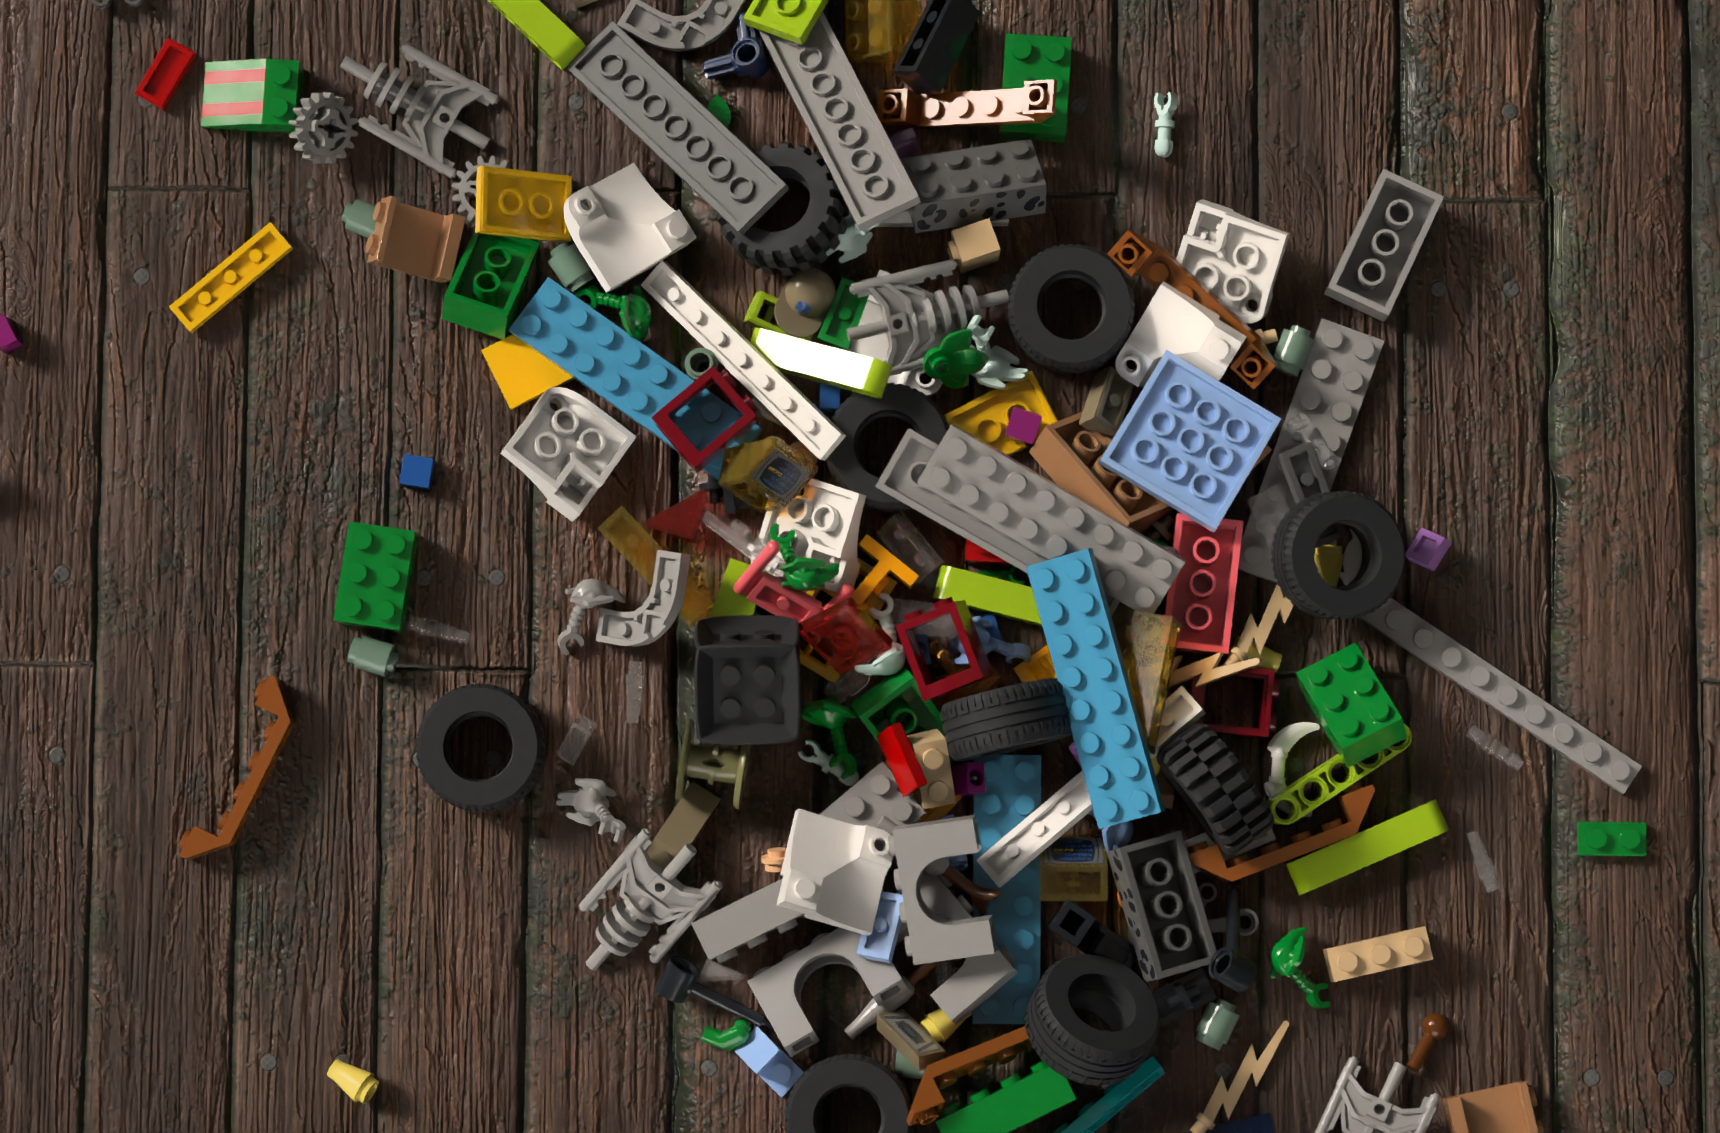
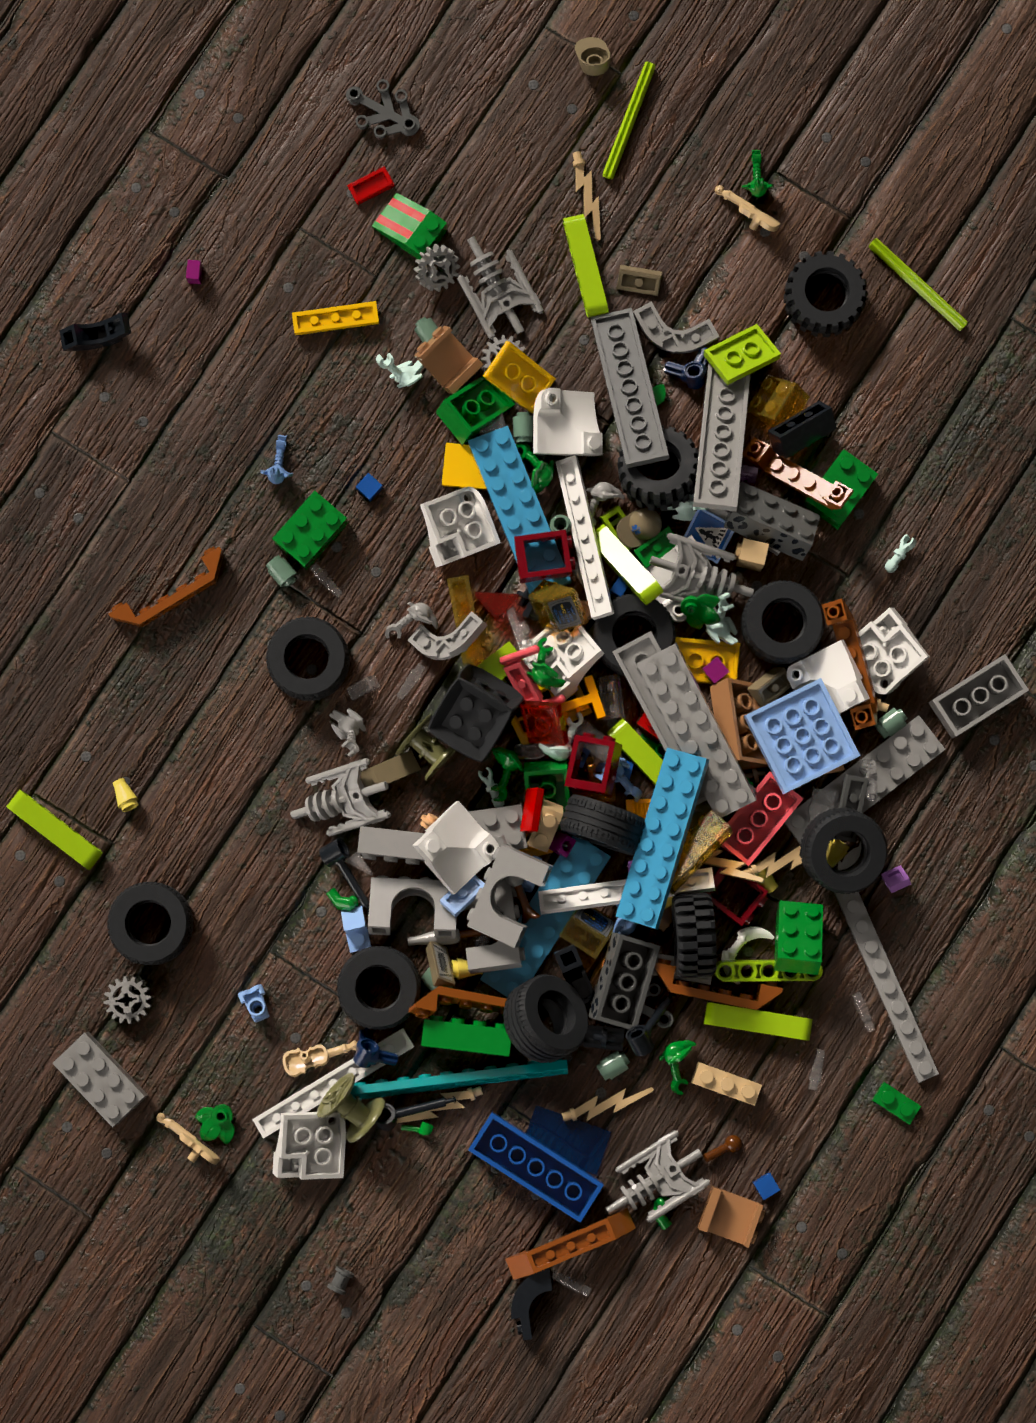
camera: 30 degrees right, 0 degrees up
(284, 530) = (276, 473): none -> medium blue piece
(366, 294) = (403, 373): none -> light aqua piece
(531, 285) = (496, 424): none -> clear piece
(727, 287) = (602, 492): none -> light grey piece
(898, 248) = (709, 530): none -> piece
(1513, 1053) = (766, 1186): none -> blue piece

